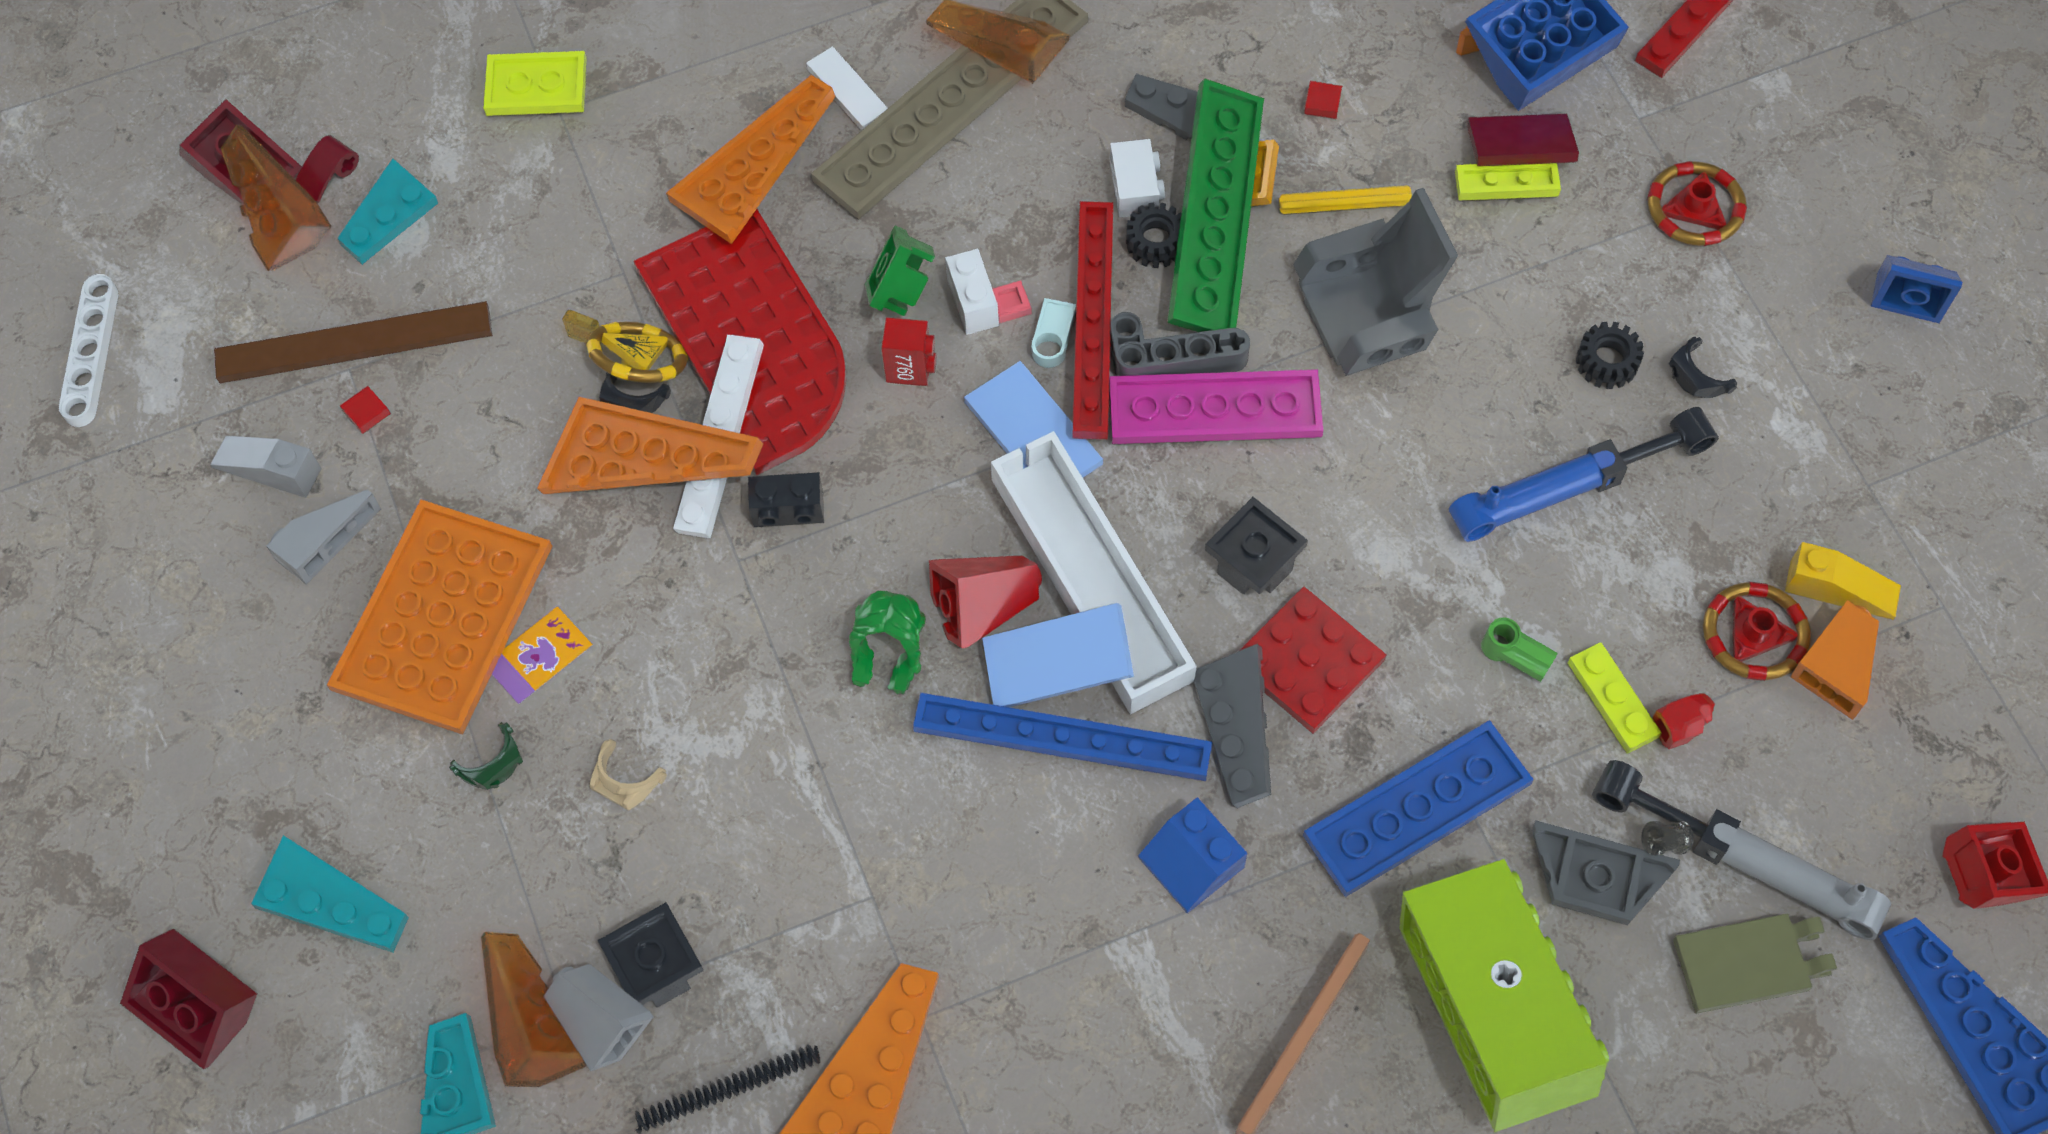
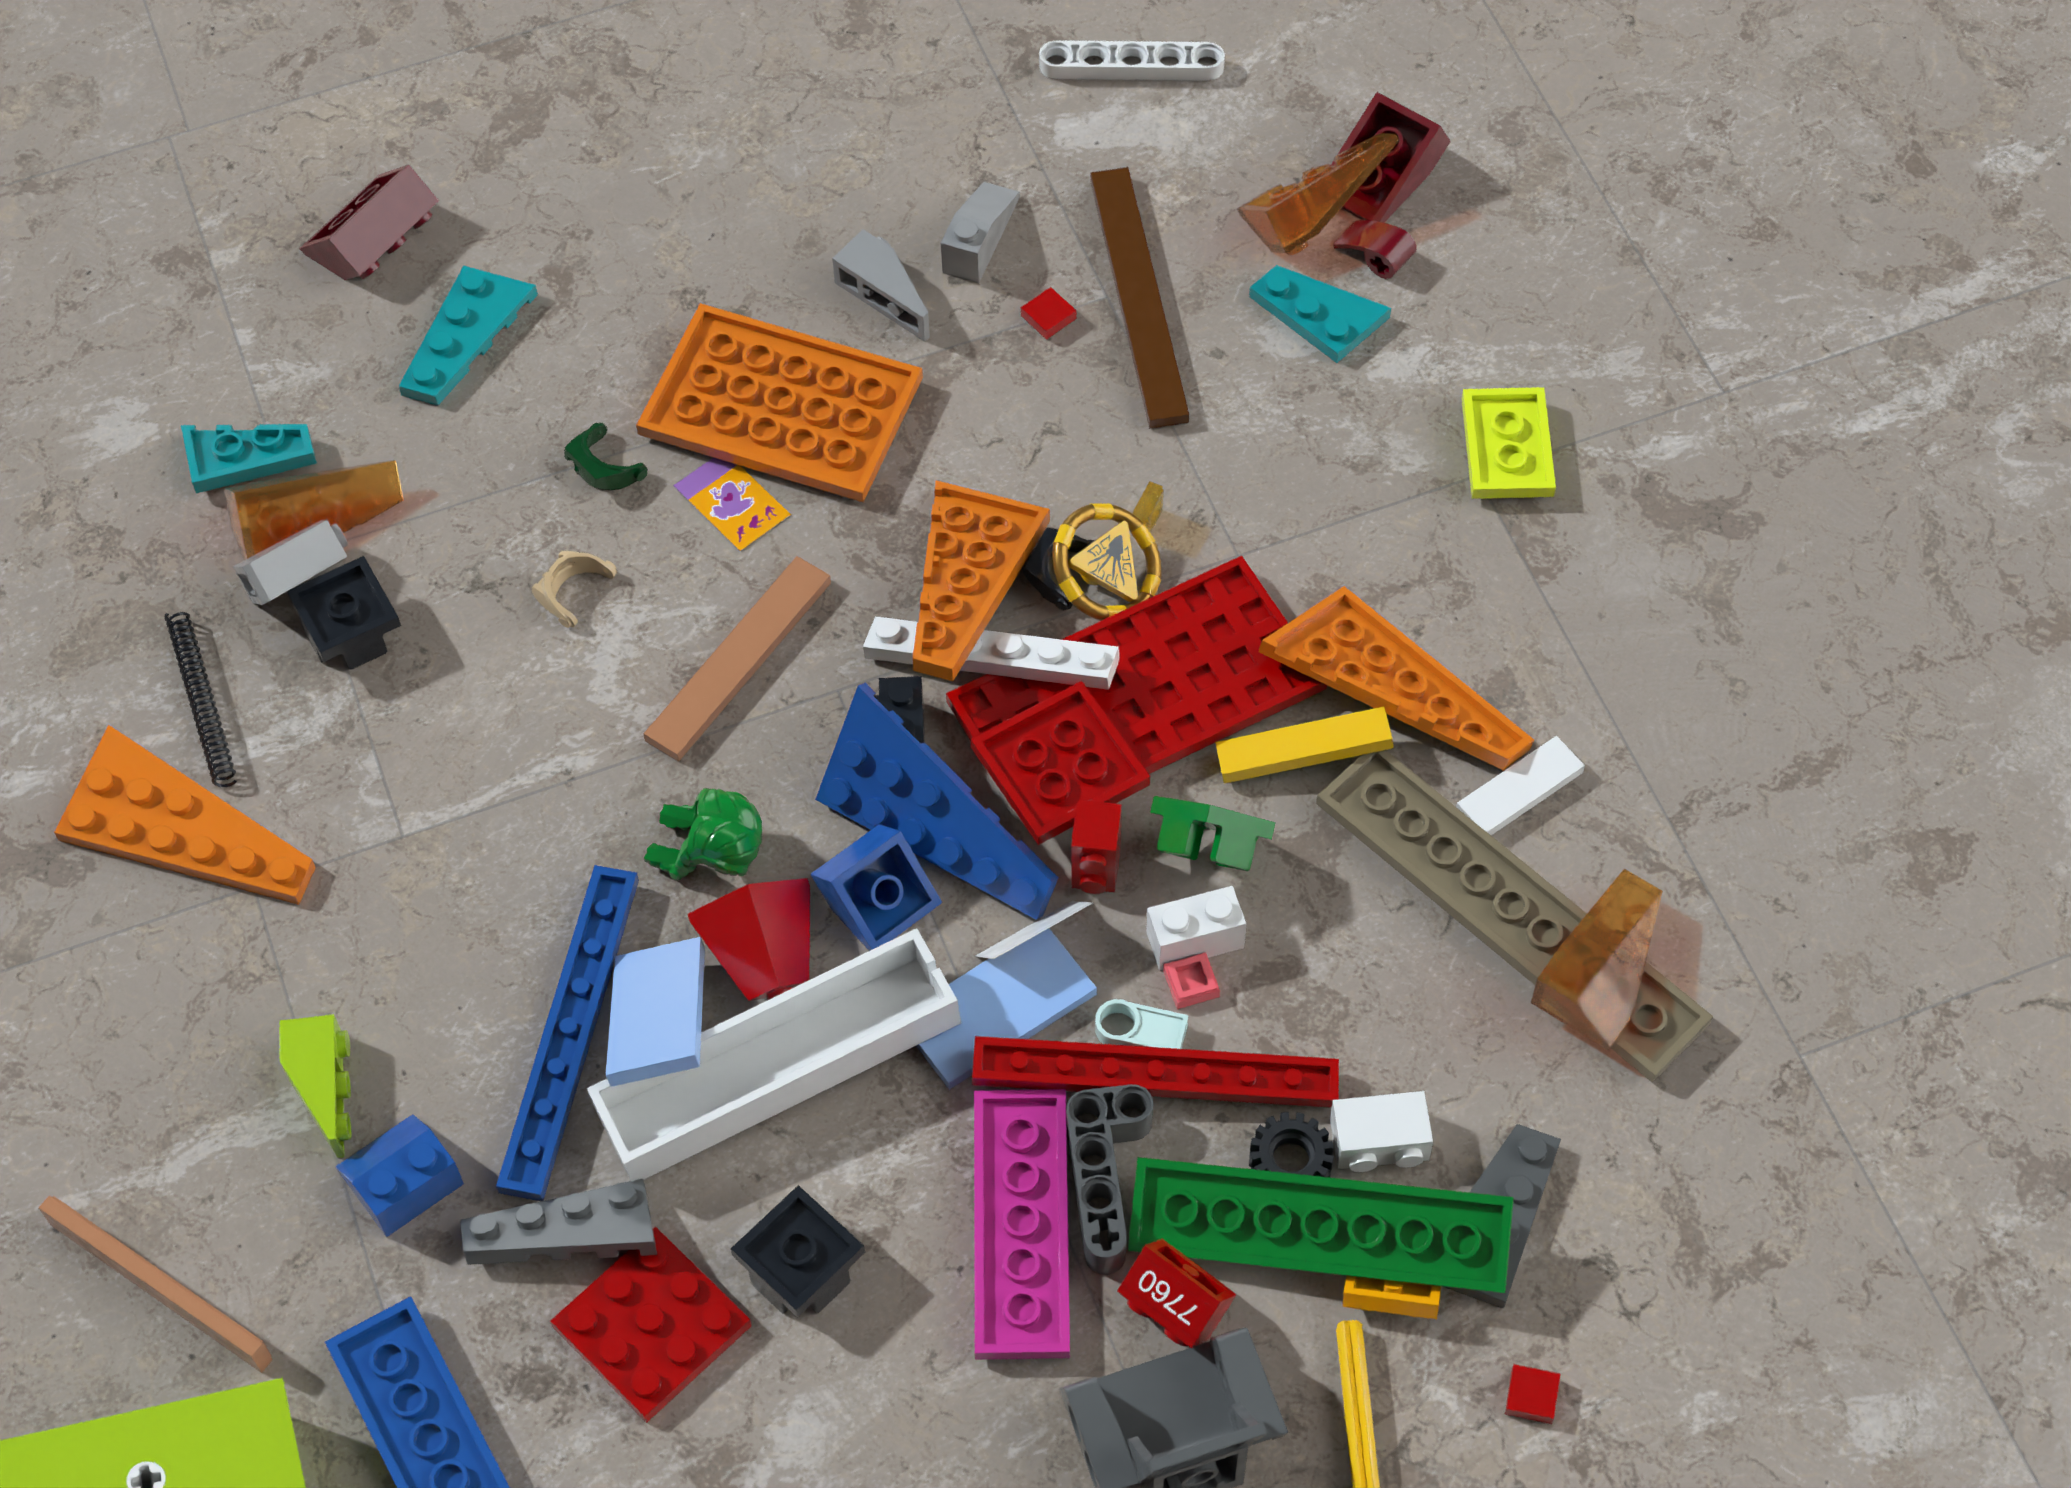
camera: 90 degrees right, 5 degrees down
(706, 635) = (737, 658): none -> nougat tile
(812, 220) = (1304, 745): none -> yellow tile
(829, 378) = (1059, 756): none -> red plate
(859, 481) = (897, 782): none -> blue wing
(931, 514) = (877, 886): none -> blue slope
(975, 399) = (1033, 929): none -> white sticker
(1106, 932) = (313, 1062): none -> lime slope
(1271, 300) = (1175, 1294): none -> red brick

